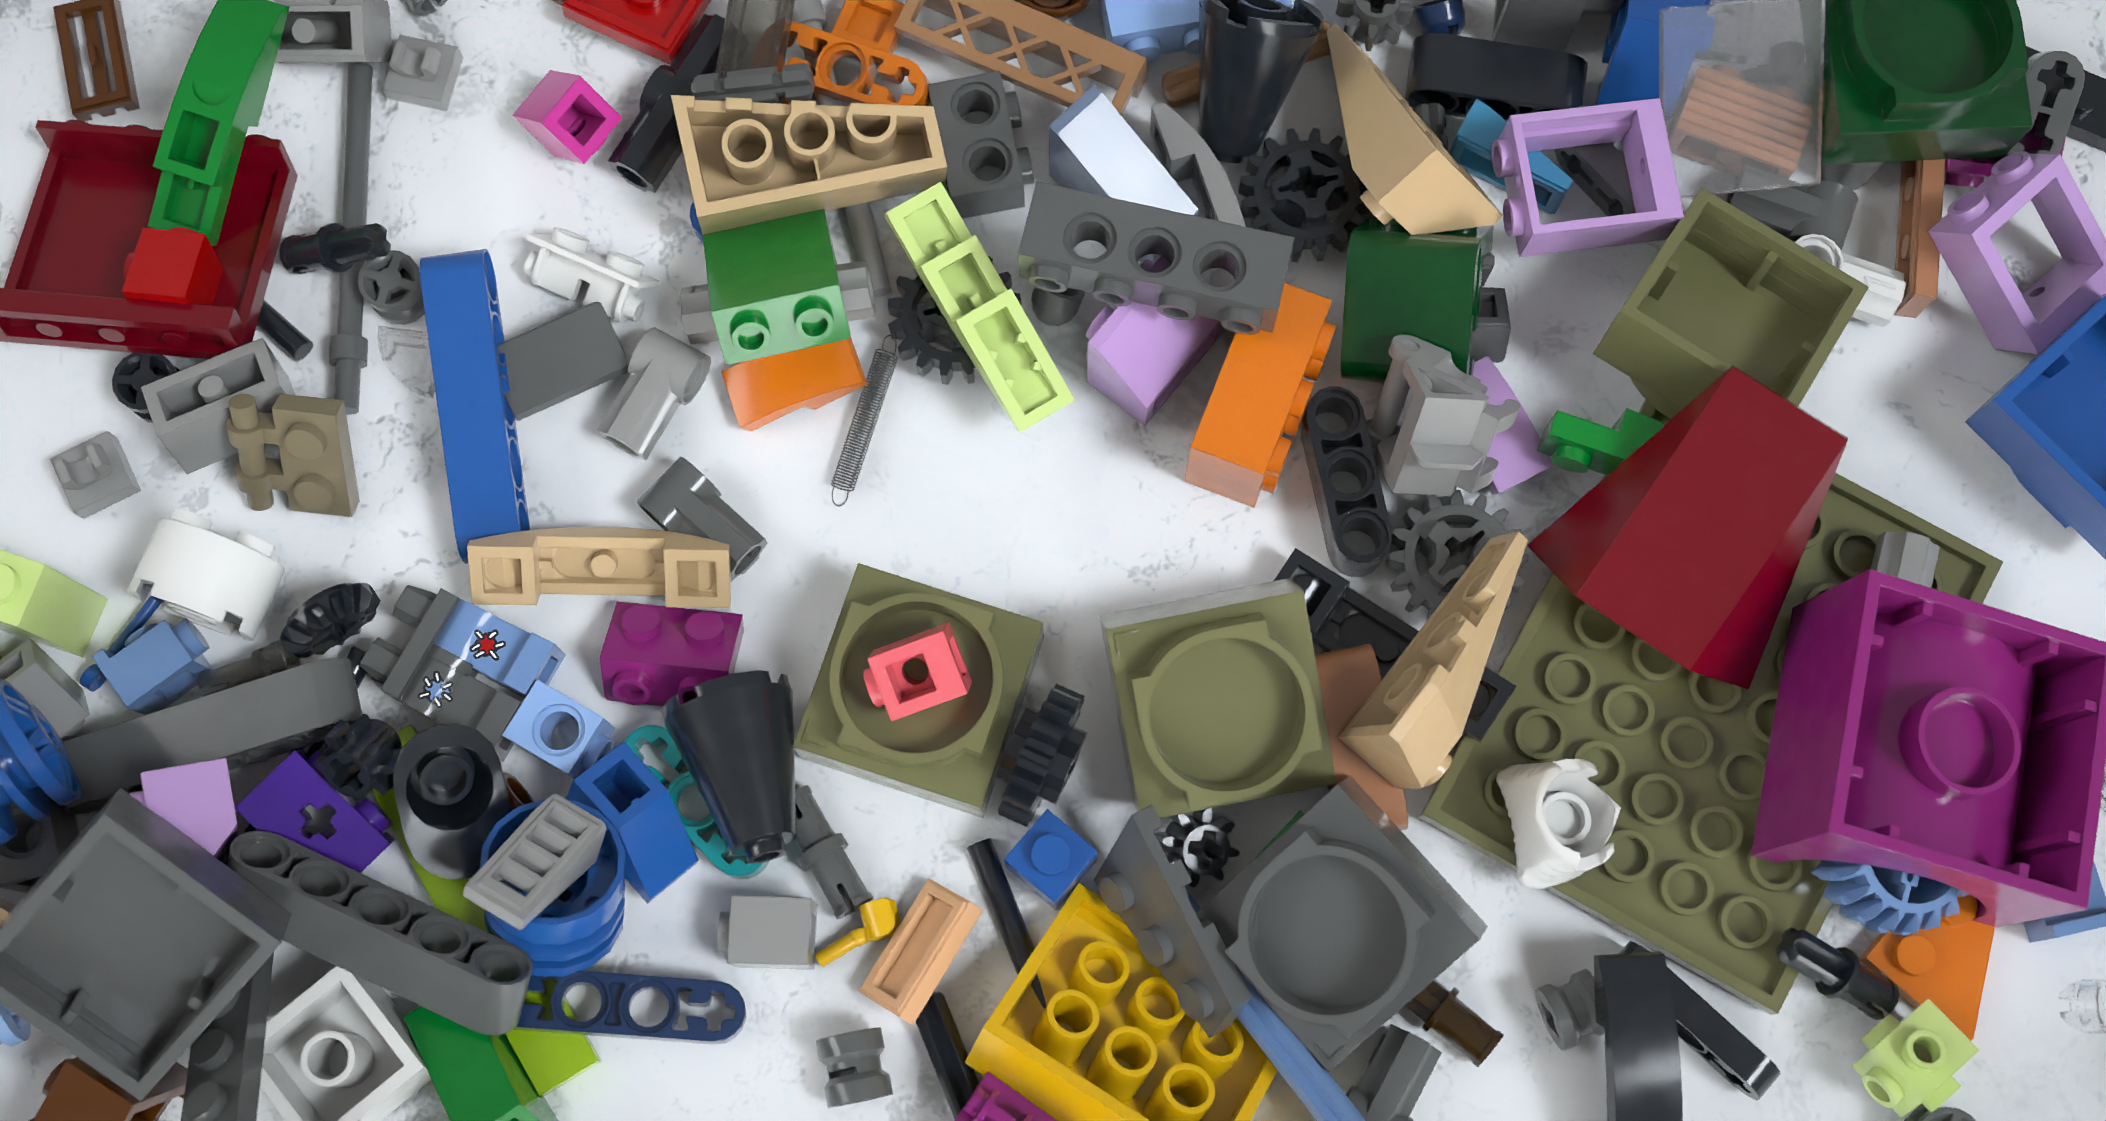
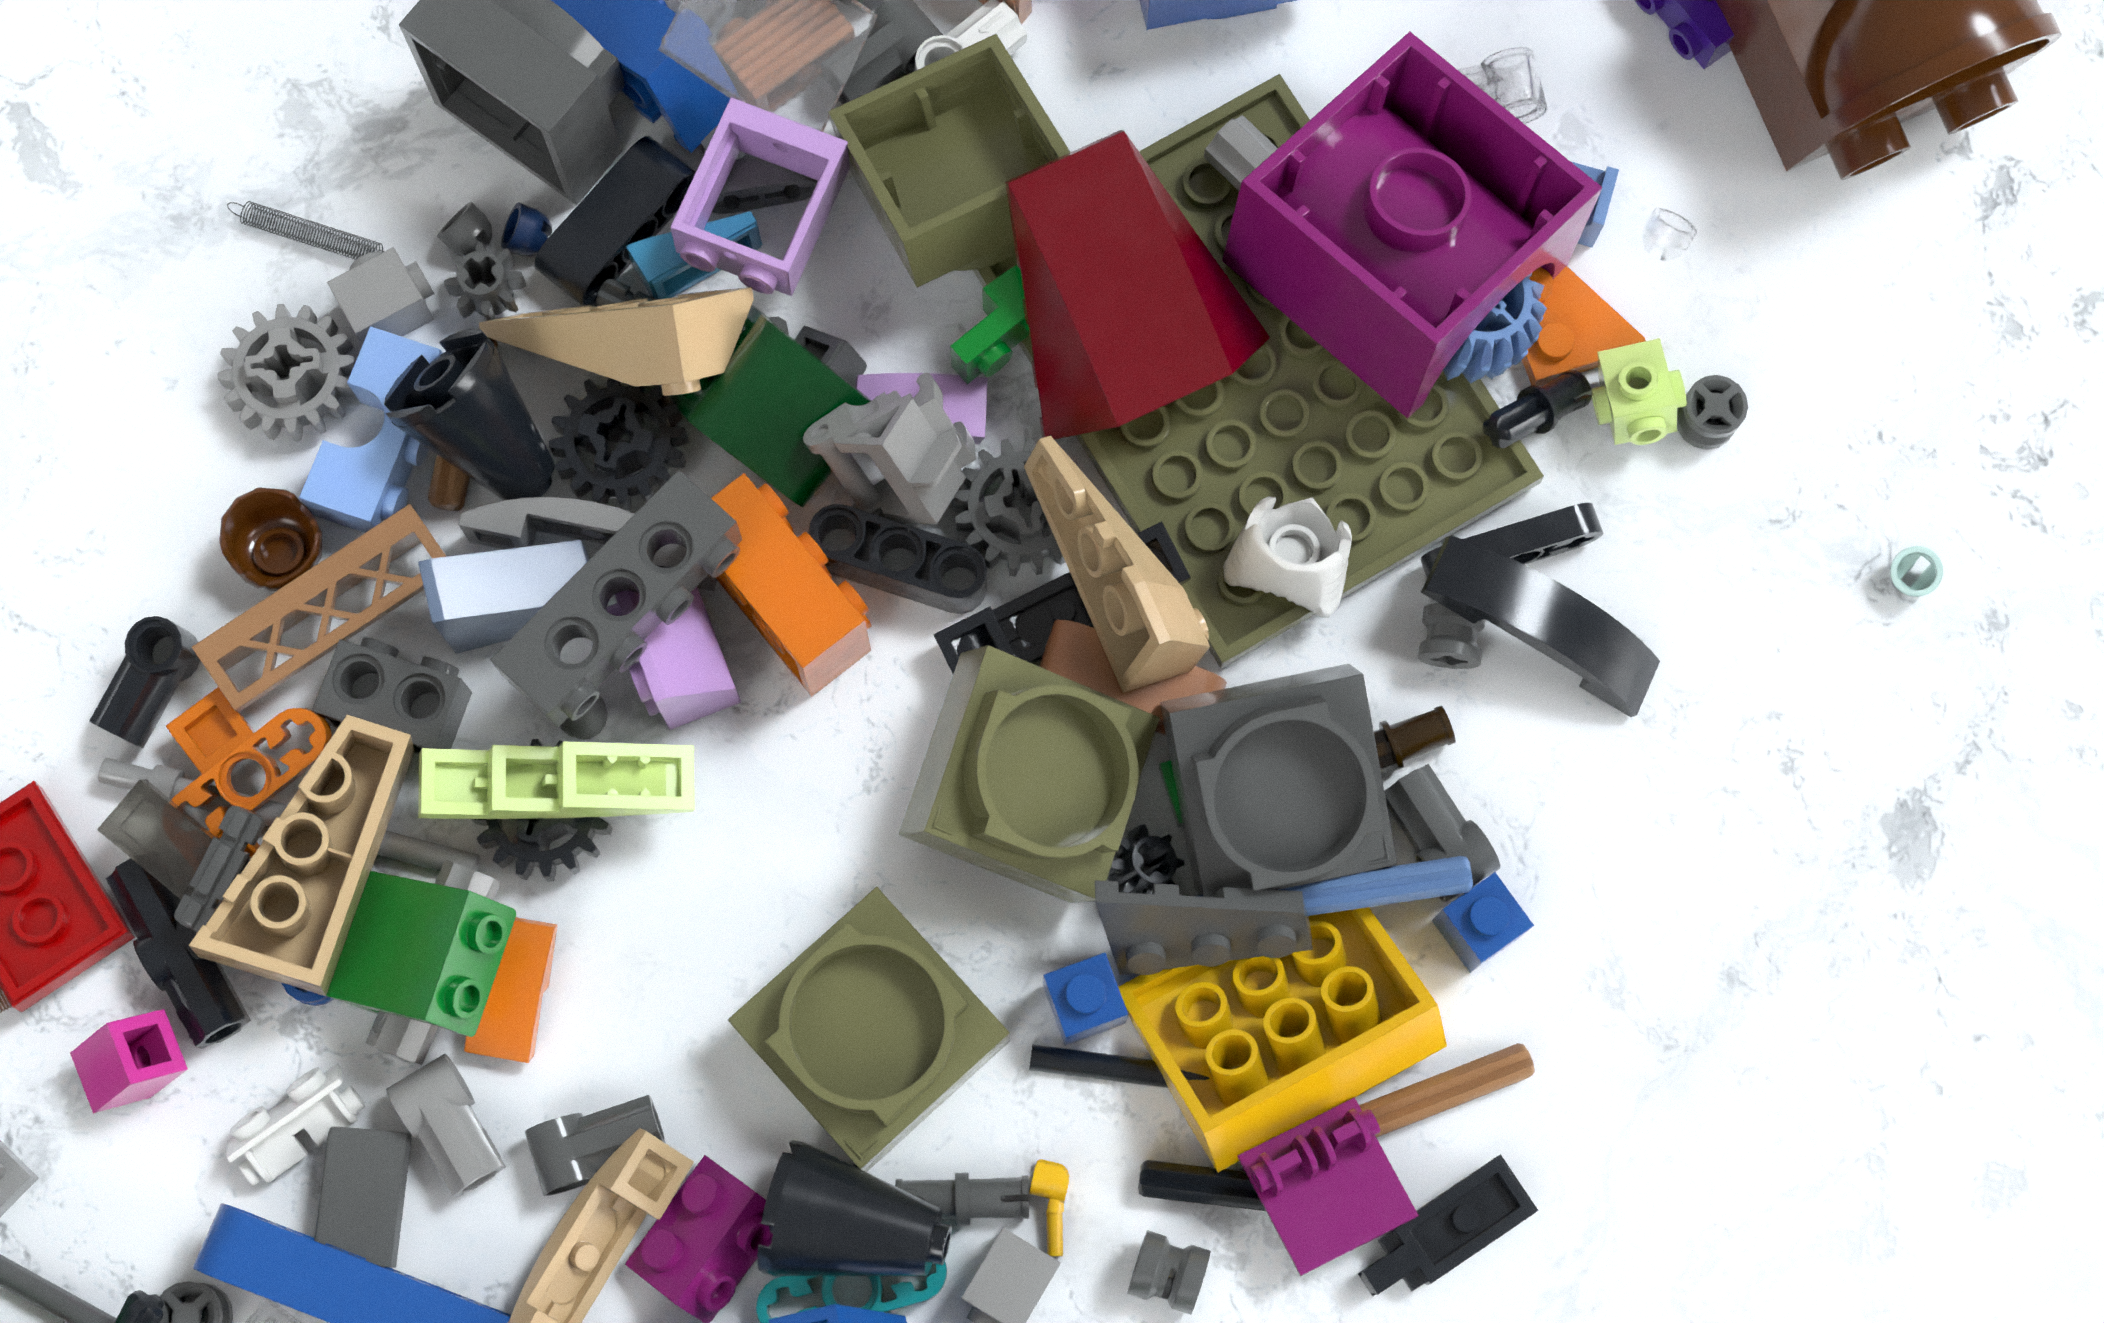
camera: 65 degrees left, 0 degrees up
(869, 402) = (595, 945): dark grey piece -> none
(902, 695) = (886, 1008): coral brick -> none
(920, 951) = (1099, 1158): light nougat tile -> none
(1041, 755) = (992, 954): black gear -> none

